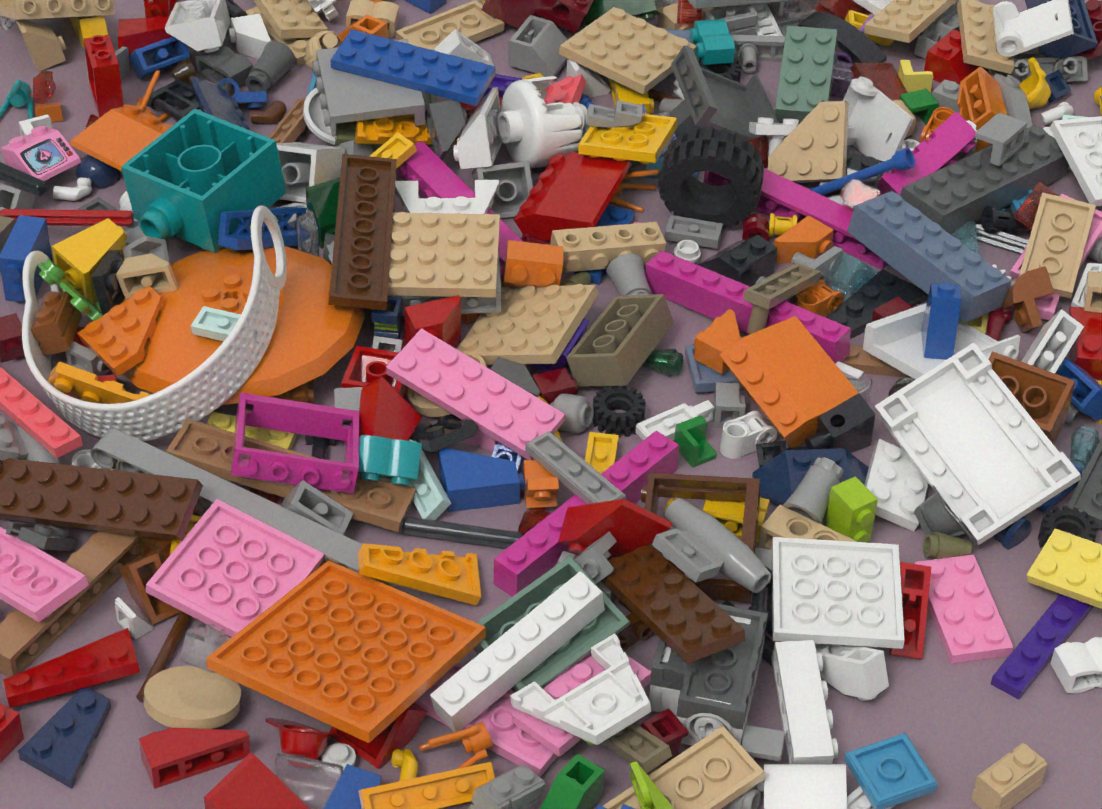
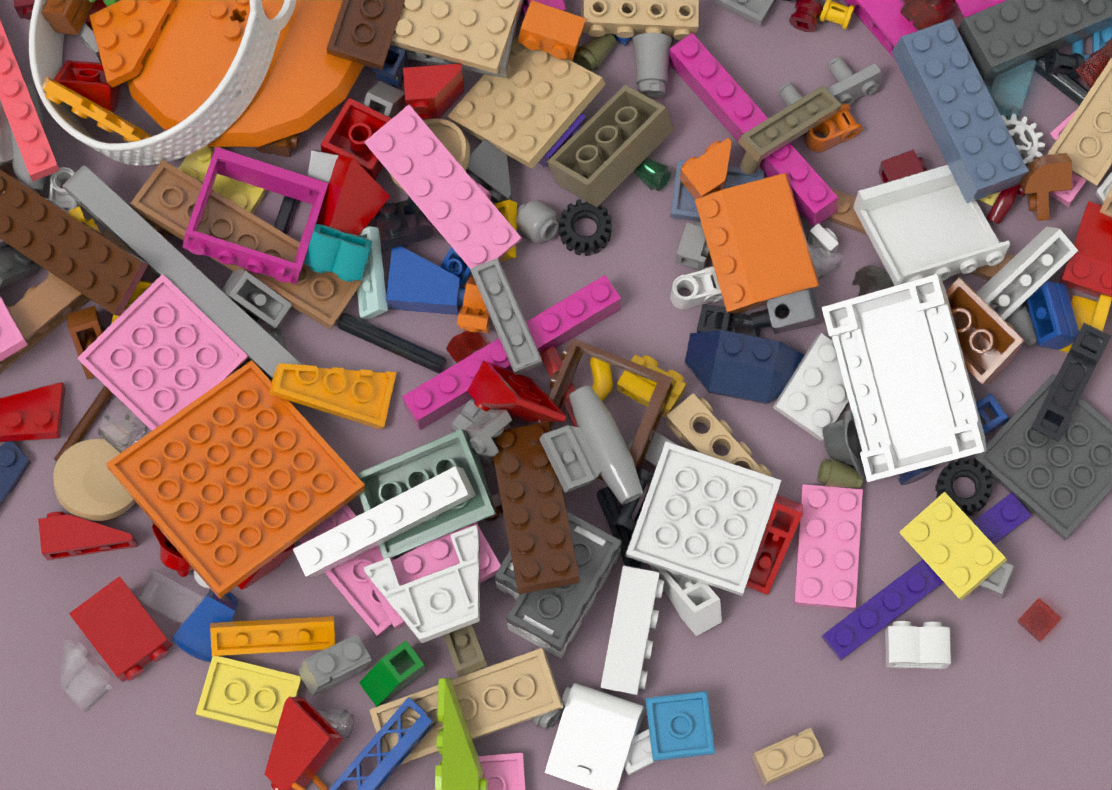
camera: 20 degrees right, 30 degrees up
(132, 619) = (70, 371): white slope -> none
(214, 323) = (210, 59): light aqua plate -> none
(407, 762) = (266, 600): yellow arm -> none
(474, 738) = (327, 593): orange plant -> none
(555, 383) = (530, 185): dark red brick -> none
(601, 450) = (548, 282): yellow plate -> none
(666, 421) = (634, 257): white hinge -> none
(667, 729) = (493, 633): dark red brick -> none
(688, 250) = (726, 27): white plate -> none
(692, 441) = (646, 285): green panel -> none
(744, 260) = (773, 56): black slope -> none
(763, 742) = (578, 663): light grey panel -> none
(807, 237) = (853, 41): orange slope -> none
(813, 492) = (729, 390): light grey plant -> none
(849, 274) = (882, 101): clear light blue slope -> none
(851, 510) = (757, 422): lime brick -> none
(880, 289) = (890, 137): black wing -> none
(941, 321) = (932, 212): blue slope -> none
(1083, 444) = (1025, 384): clear light blue cone -> none

